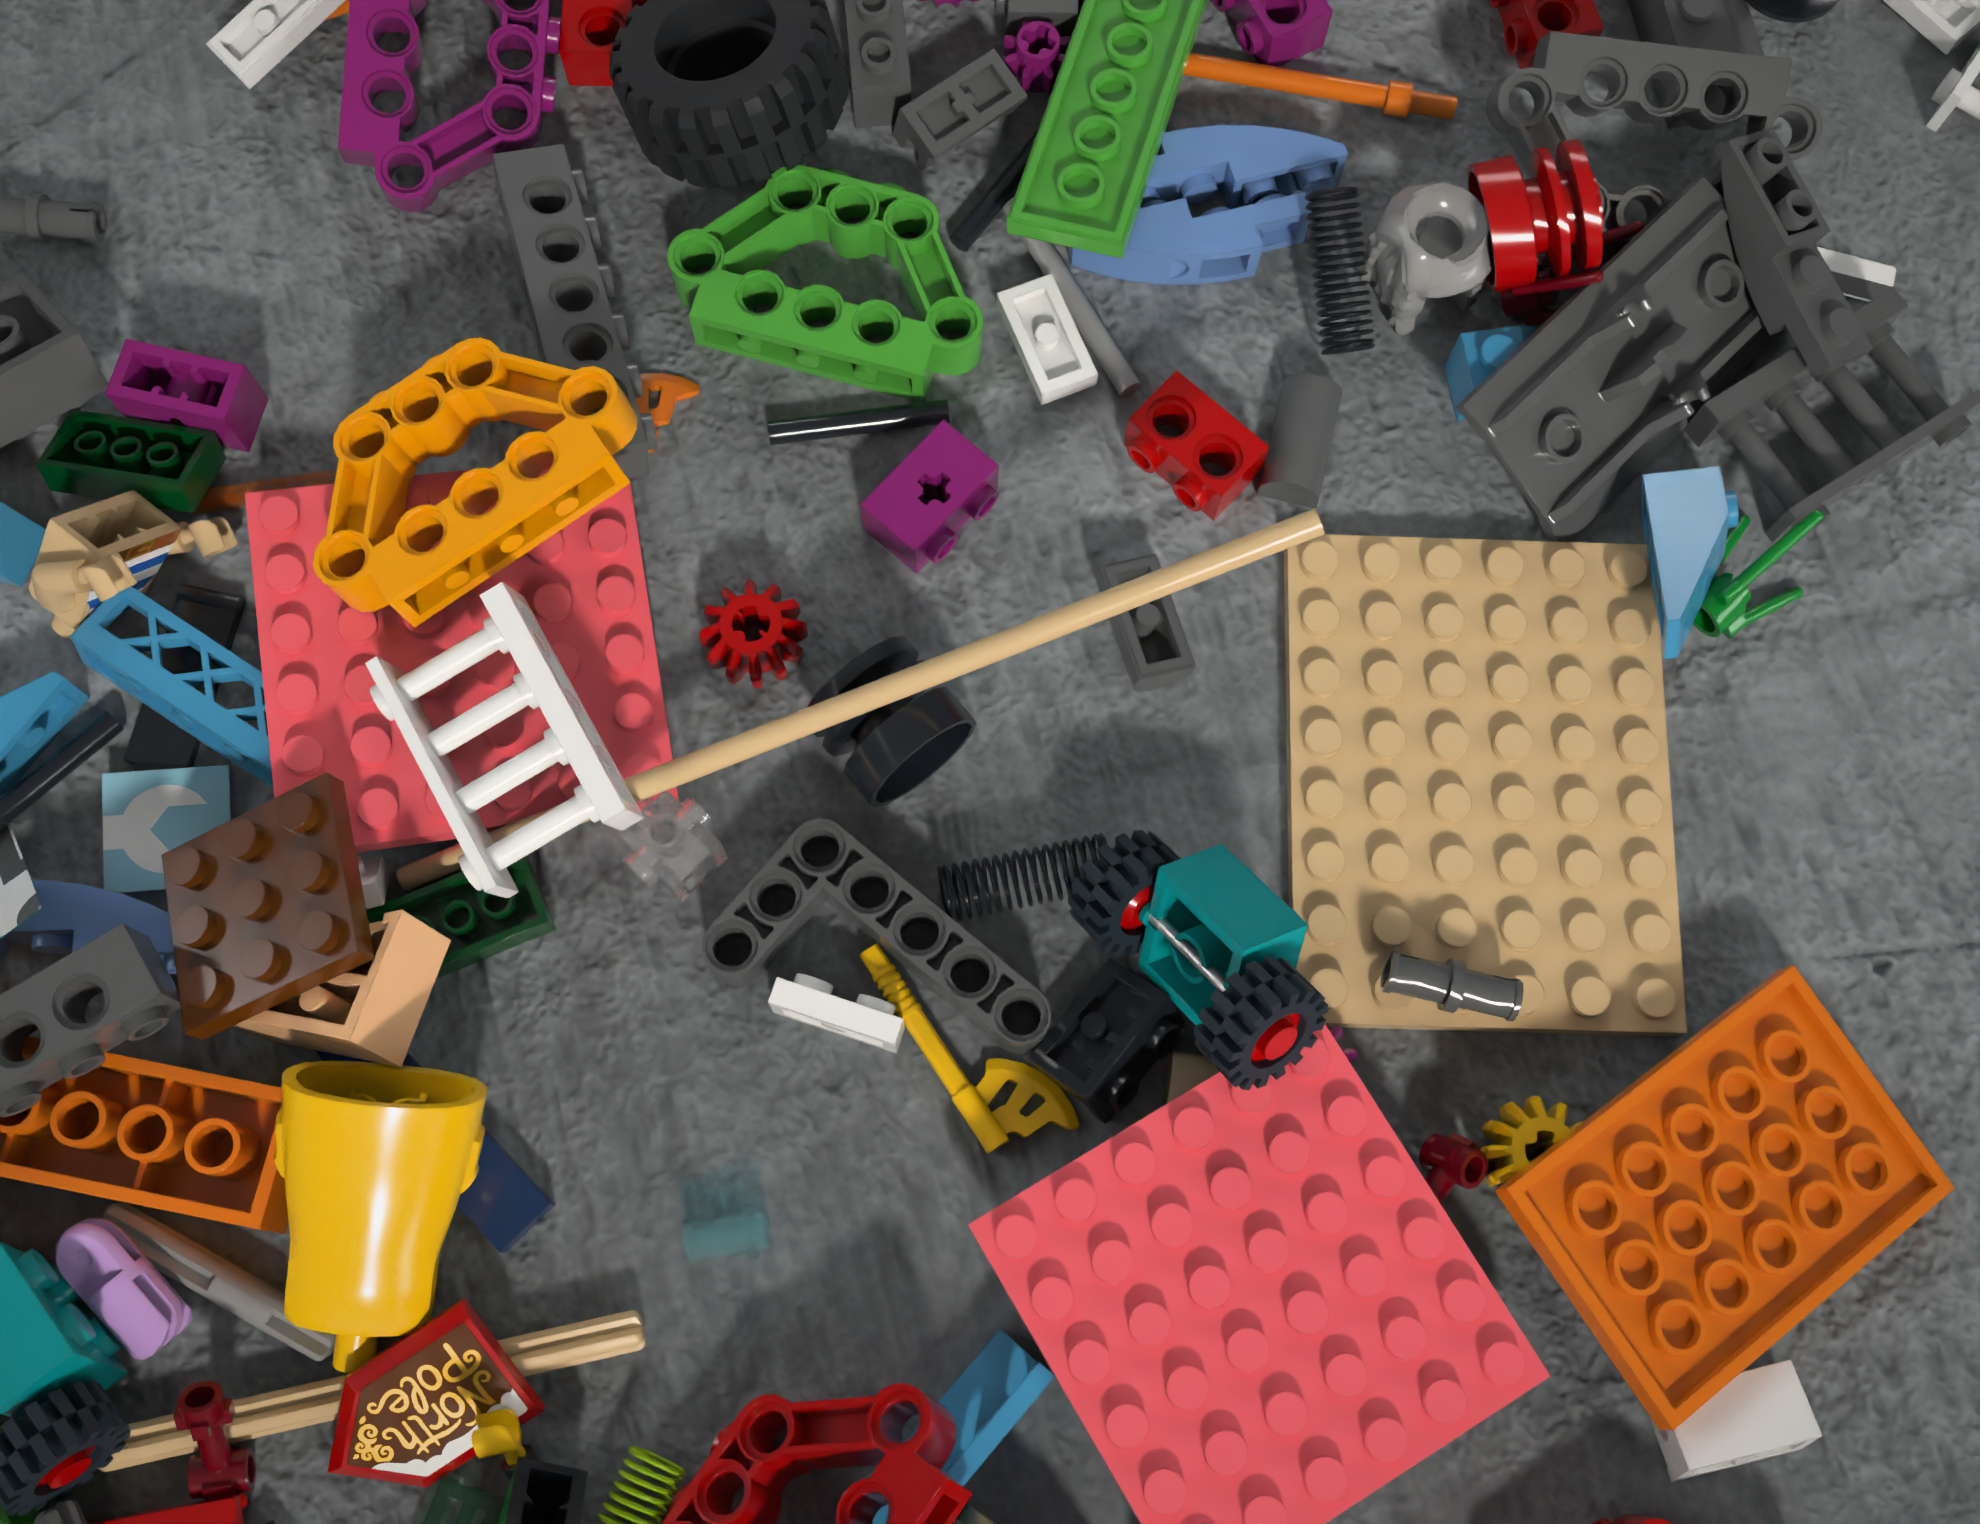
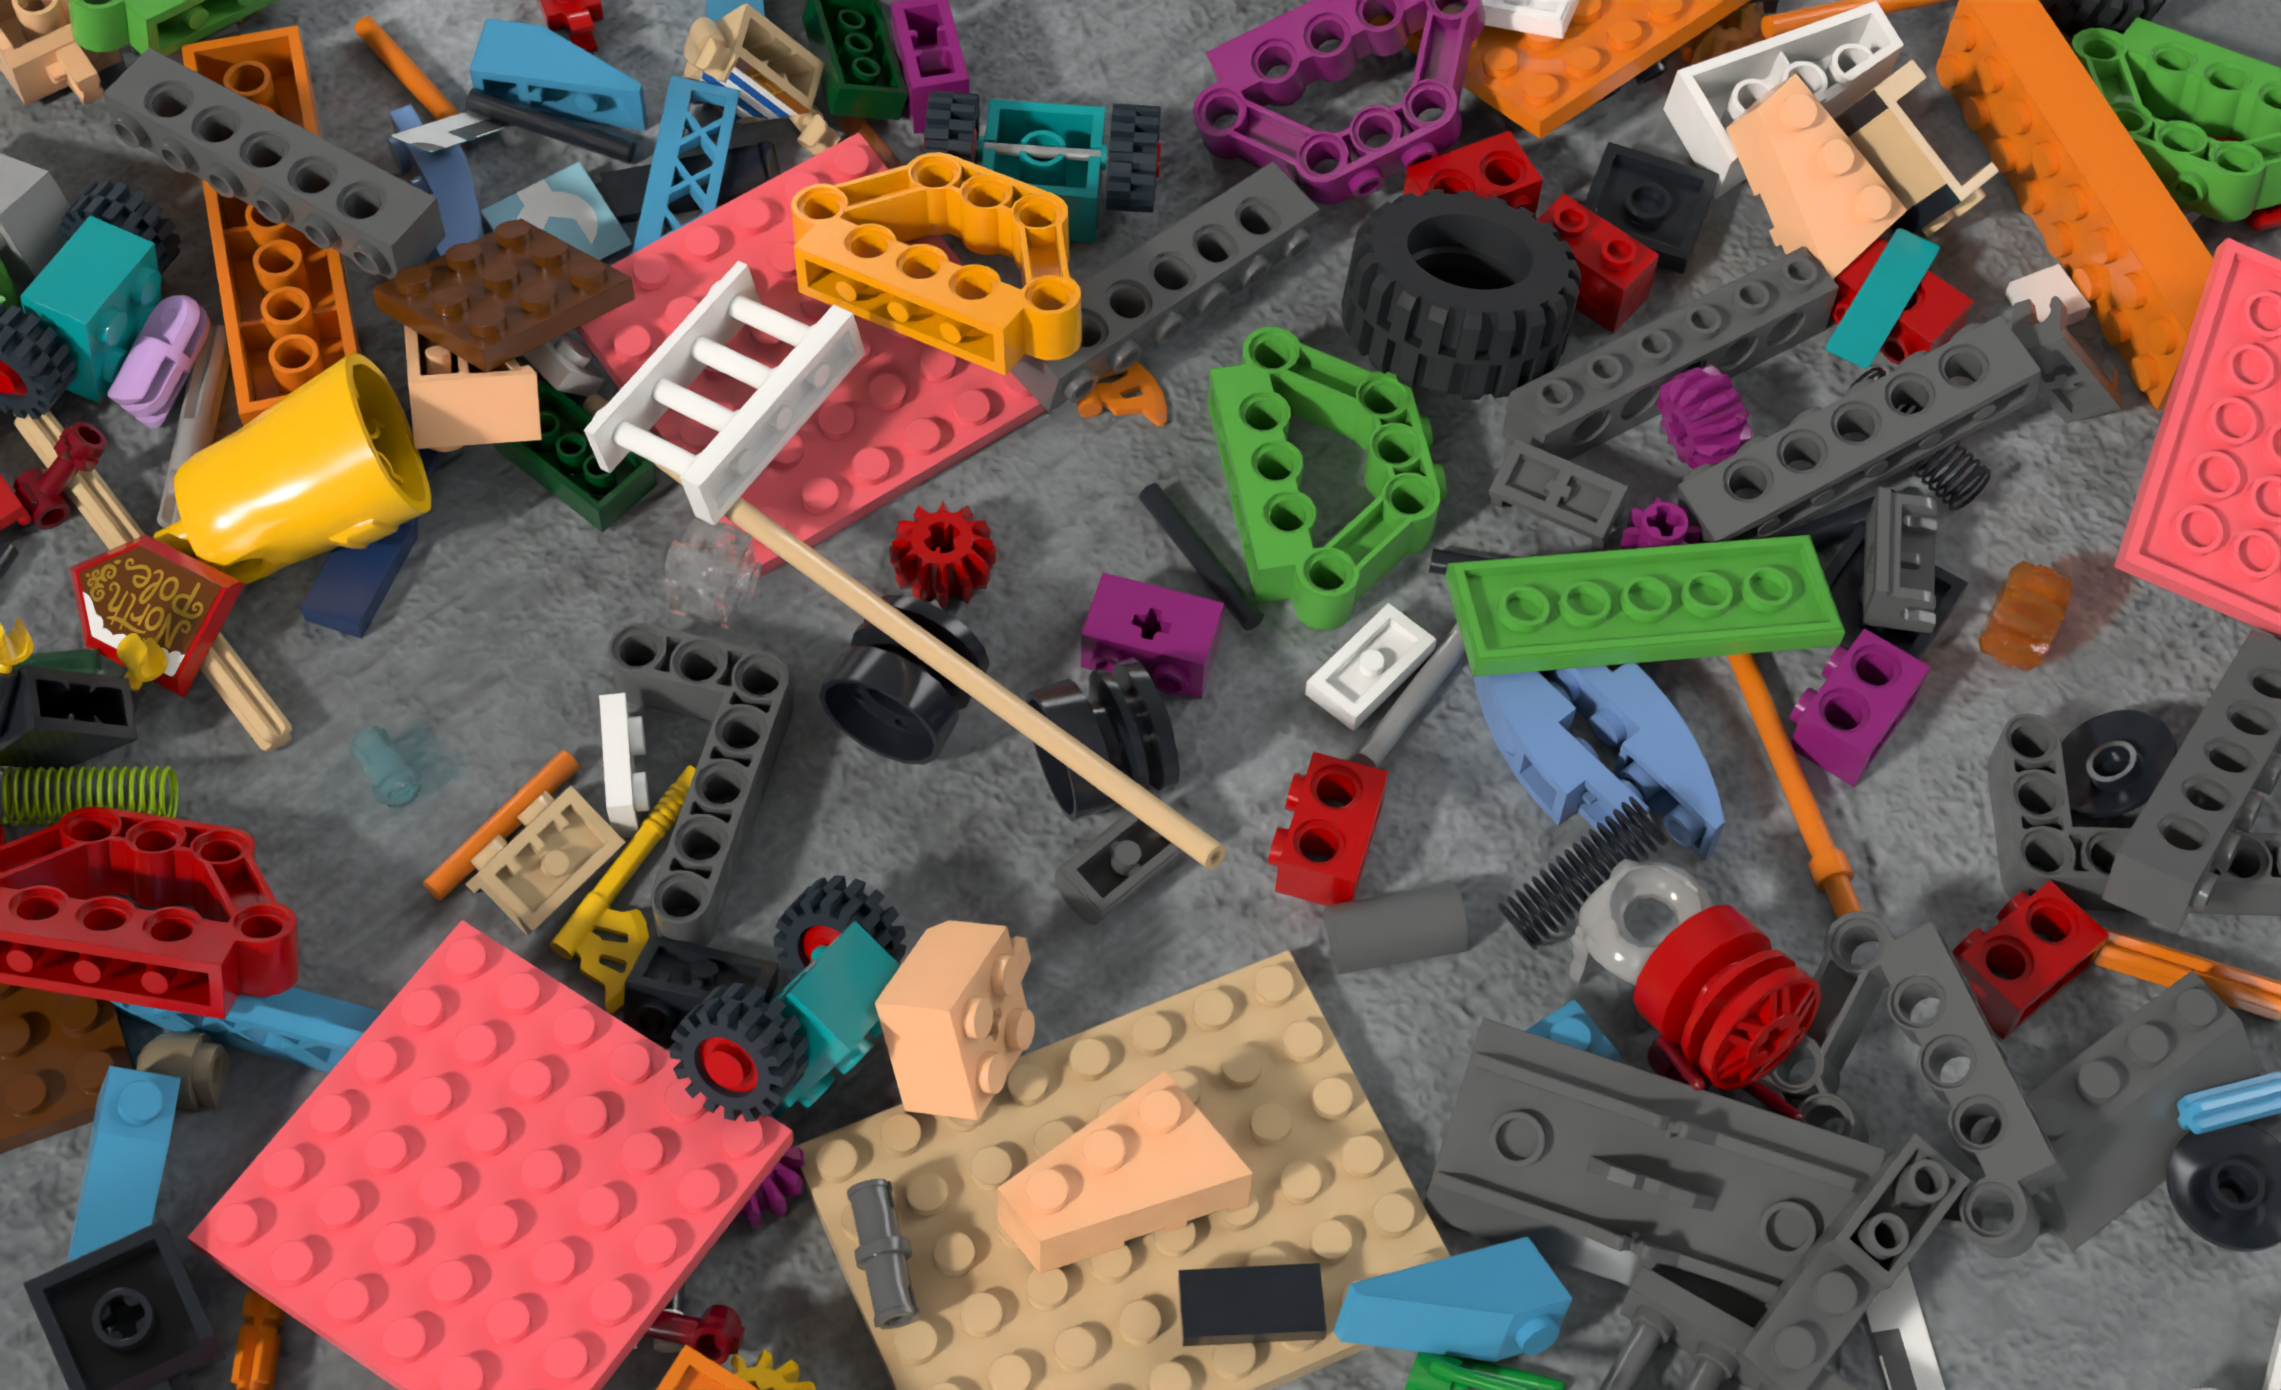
camera: 65 degrees right, 15 degrees down
(369, 332) = (1056, 150): none -> brick
(838, 1150) = (503, 822): none -> orange bar
(900, 1125) = (546, 860): none -> tan bracket
(944, 872) = (793, 804): black piece -> none
(1029, 566) = (1120, 723): none -> black wheel
(1265, 820) = (957, 1017): none -> light nougat hinge
(1473, 757) = (1121, 1177): none -> light nougat wedge
(1612, 711) = (1251, 1304): none -> black tile

